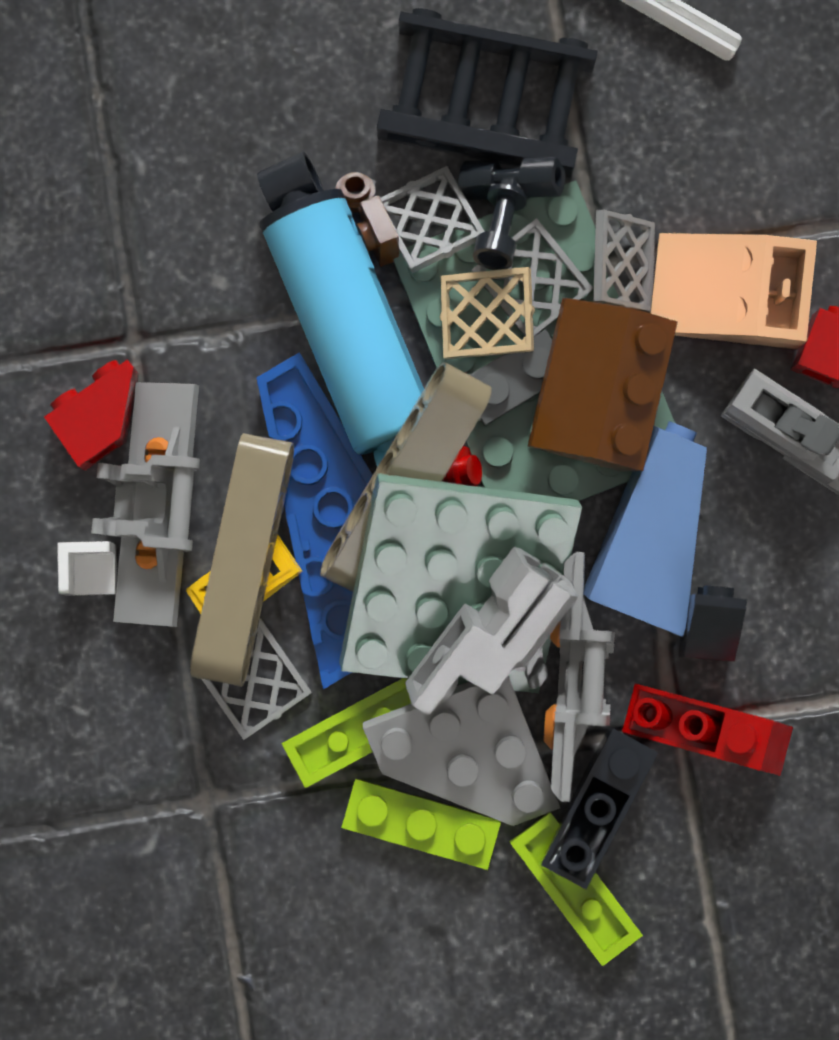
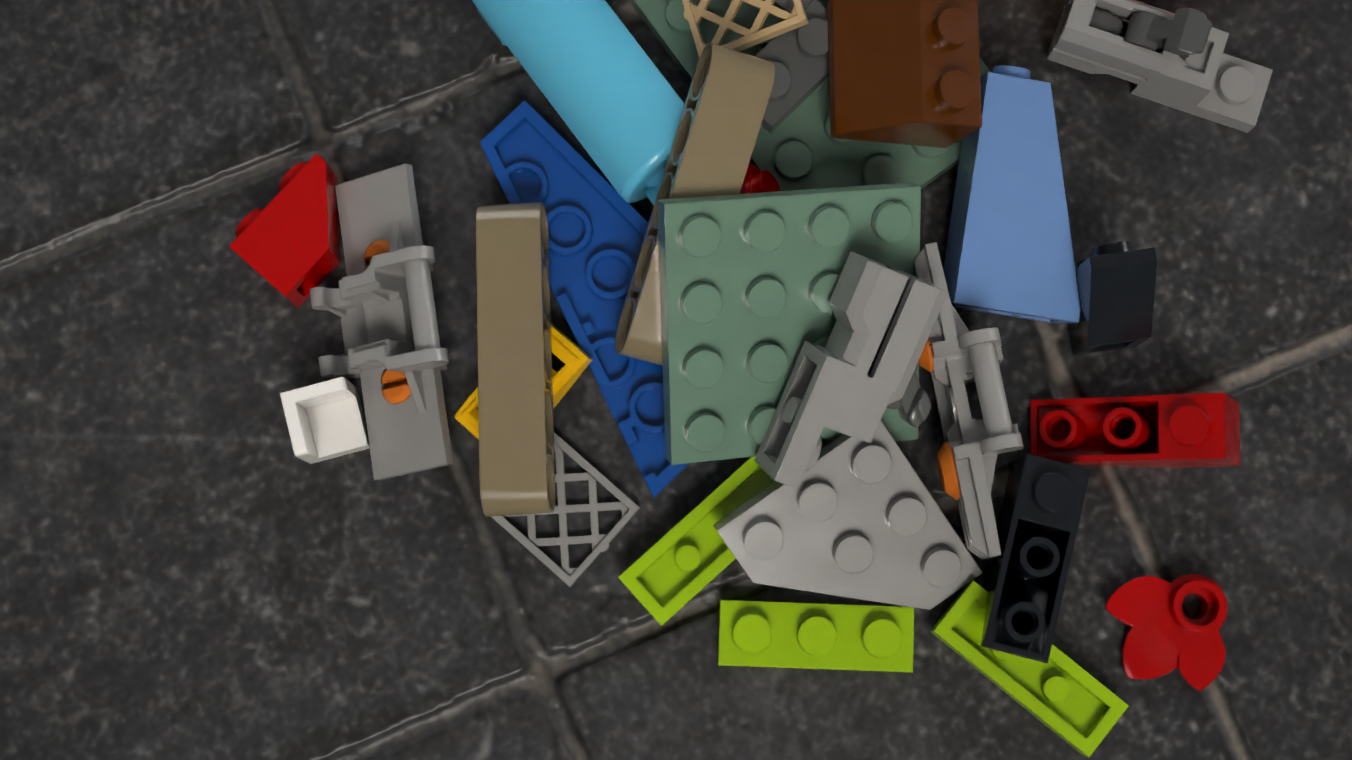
camera: 15 degrees left, 5 degrees down
(685, 886) = (1161, 632): none -> red plate

